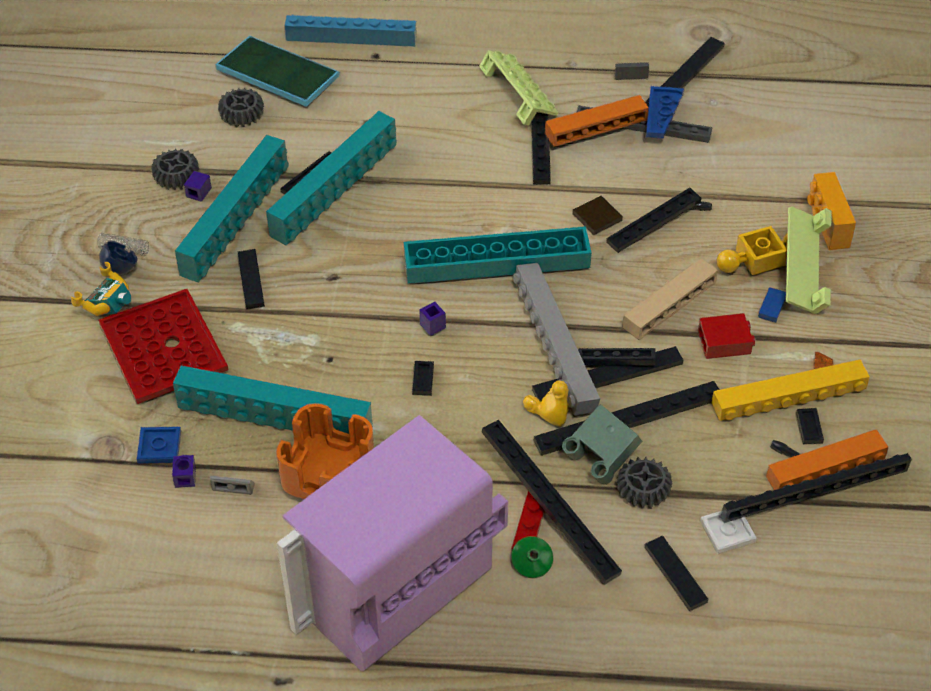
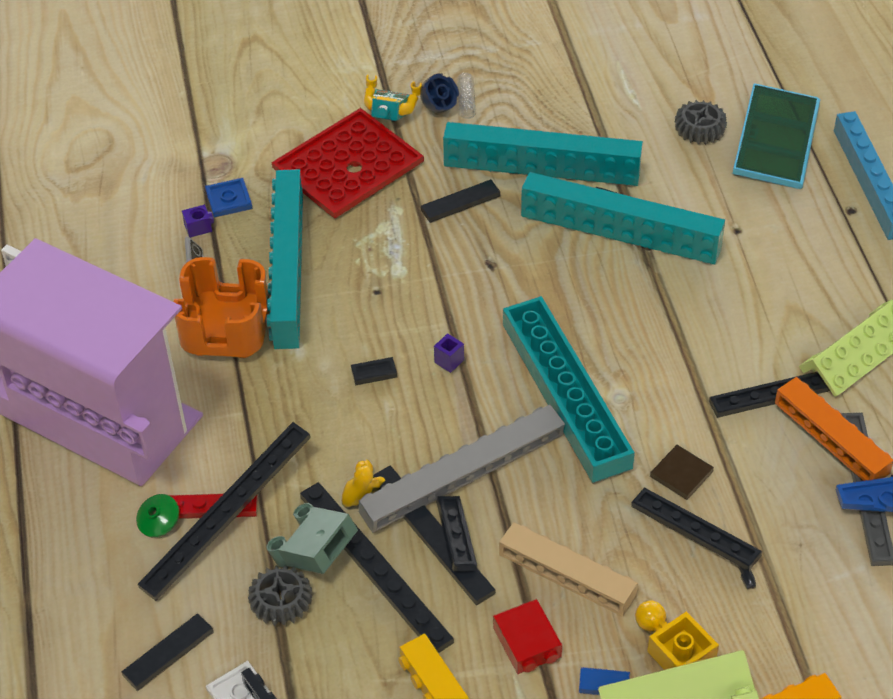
camera: 75 degrees right, 0 degrees up
(174, 168) = (585, 100): dark grey gear -> none
(197, 186) = (568, 122): dark purple brick -> none

